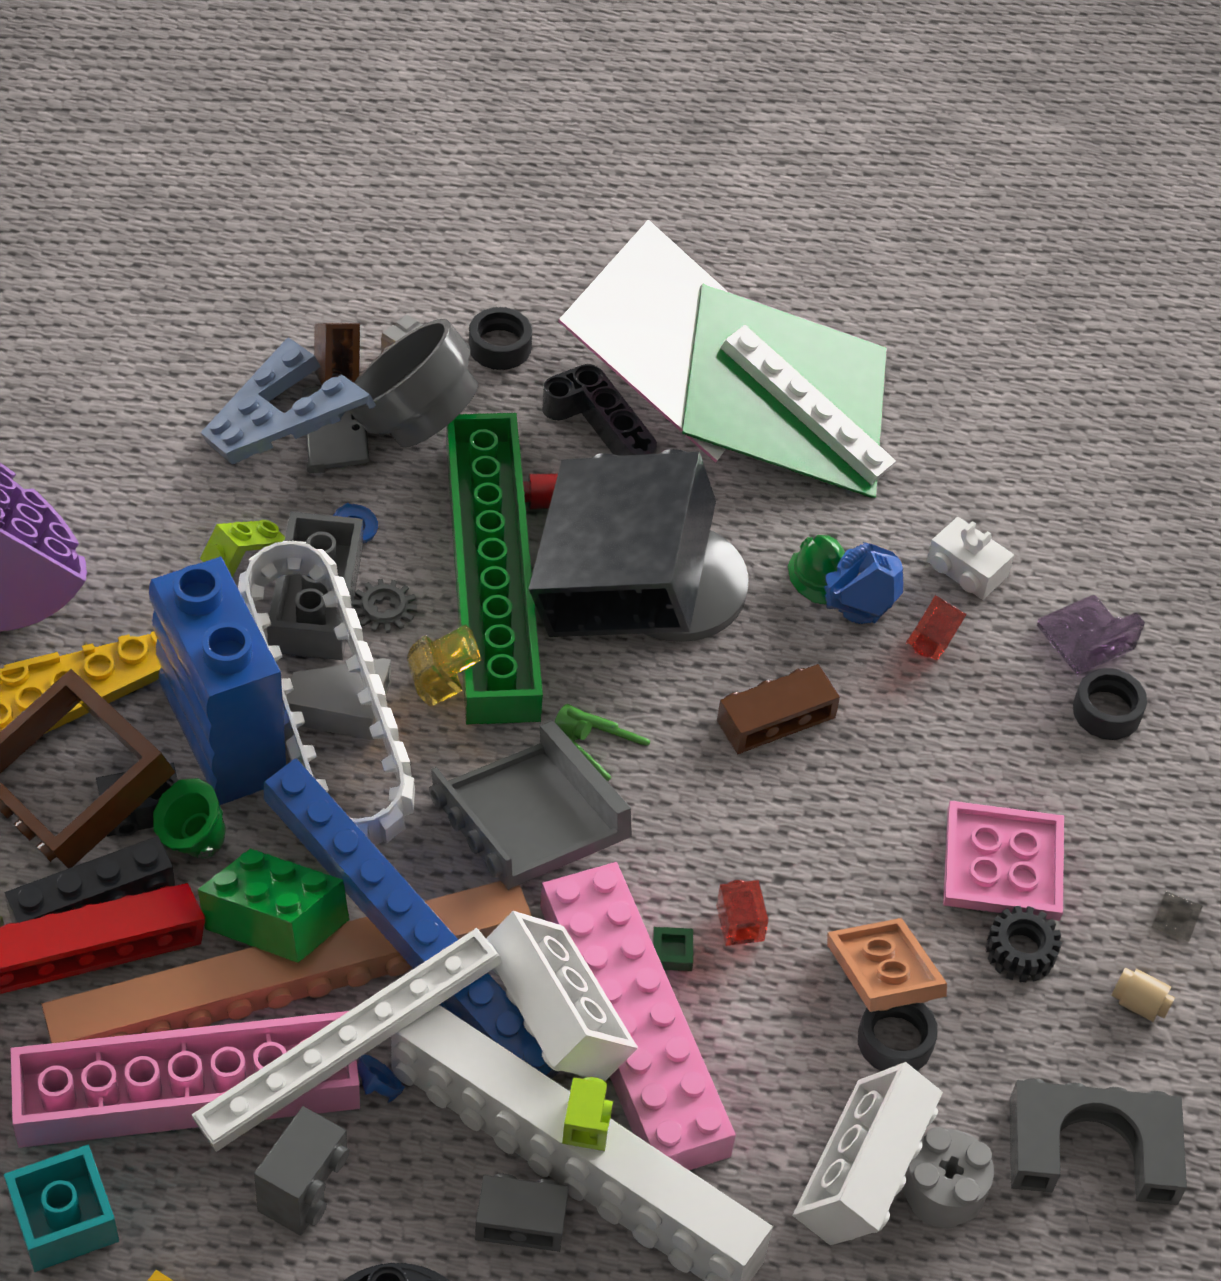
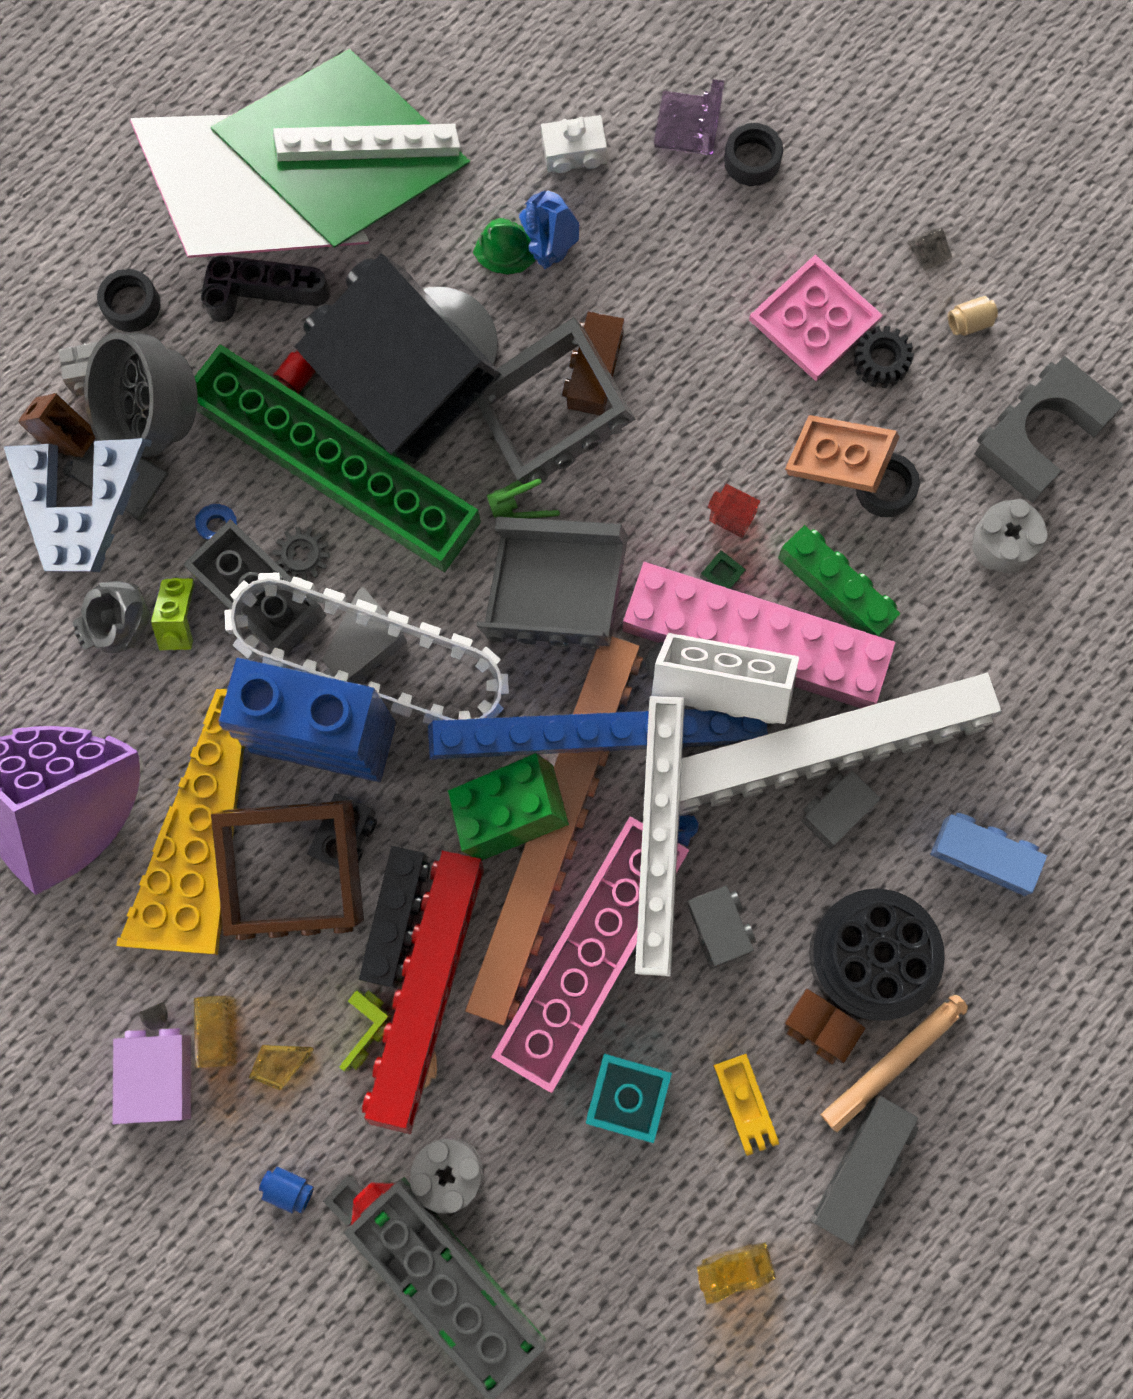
camera: 40 degrees left, 25 degrees up
(190, 819) = (392, 815): green piece -> none
(200, 514) = (112, 617): none -> dark grey helmet
(437, 662) = (395, 556): clear yellow brick -> none
(587, 1114) = (835, 727): lime brick -> none
(708, 647) = (529, 364): none -> dark grey window
(753, 1052) = (837, 583): none -> green brick
(868, 1155) = (967, 572): white brick -> none
(935, 628) = (615, 213): clear red brick -> none

